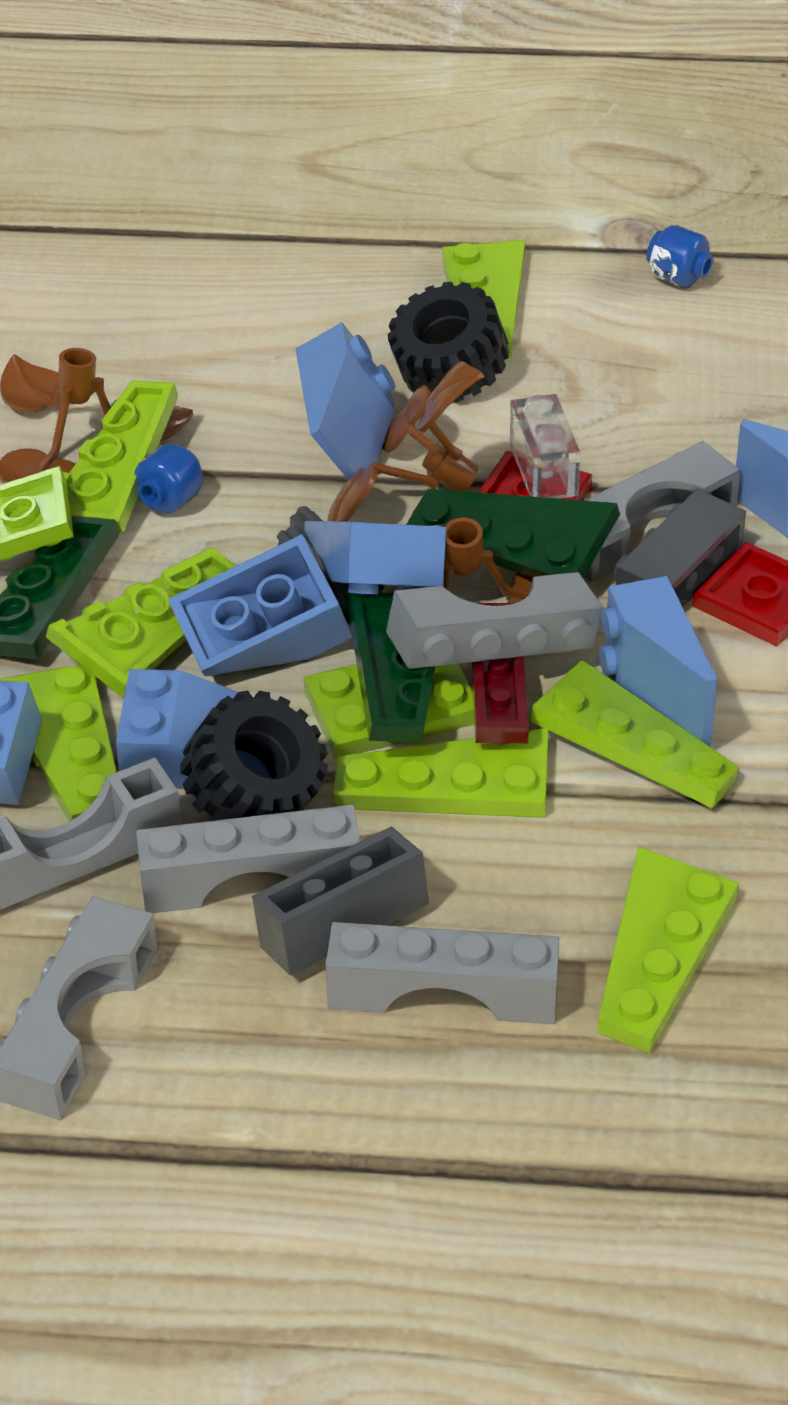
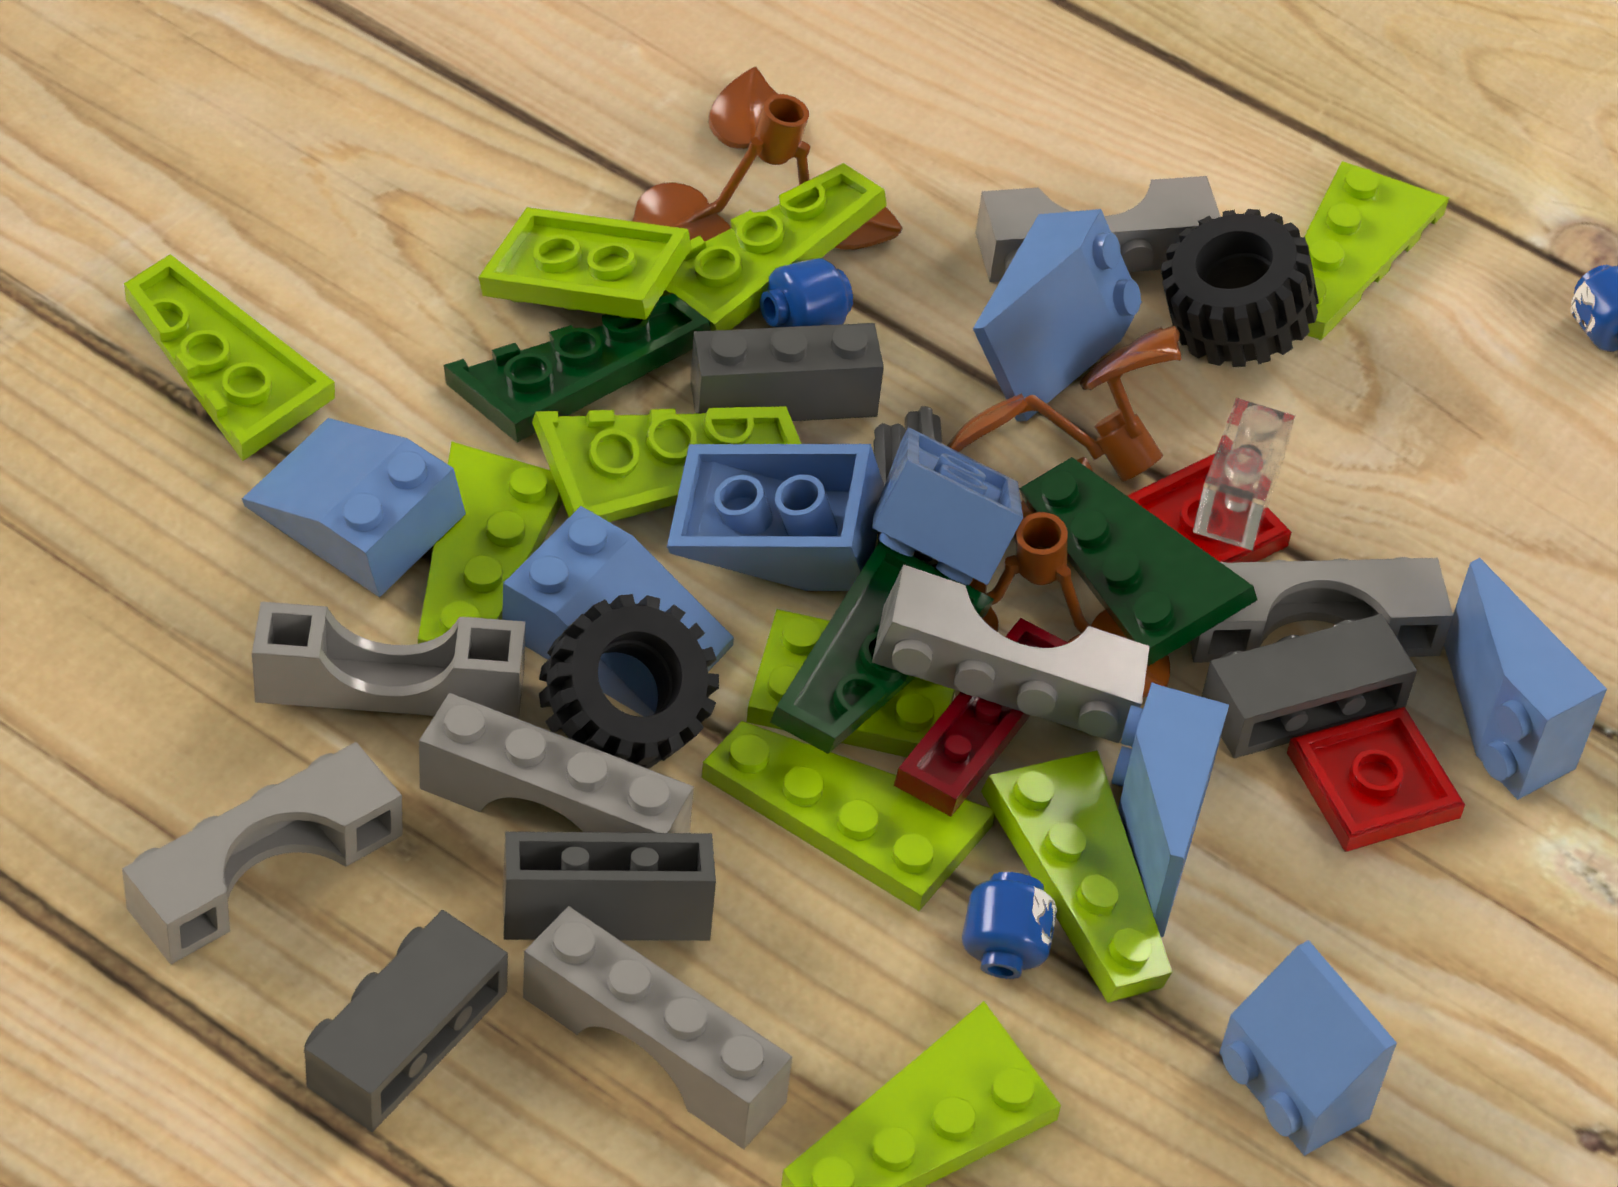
camera: 25 degrees right, 5 degrees up
(214, 514) = (806, 368): none -> dark grey brick
(265, 1062) = (405, 1019): none -> dark grey brick
(271, 373) = (1142, 231): none -> light grey arch
(617, 790) = (1009, 924): none -> blue head

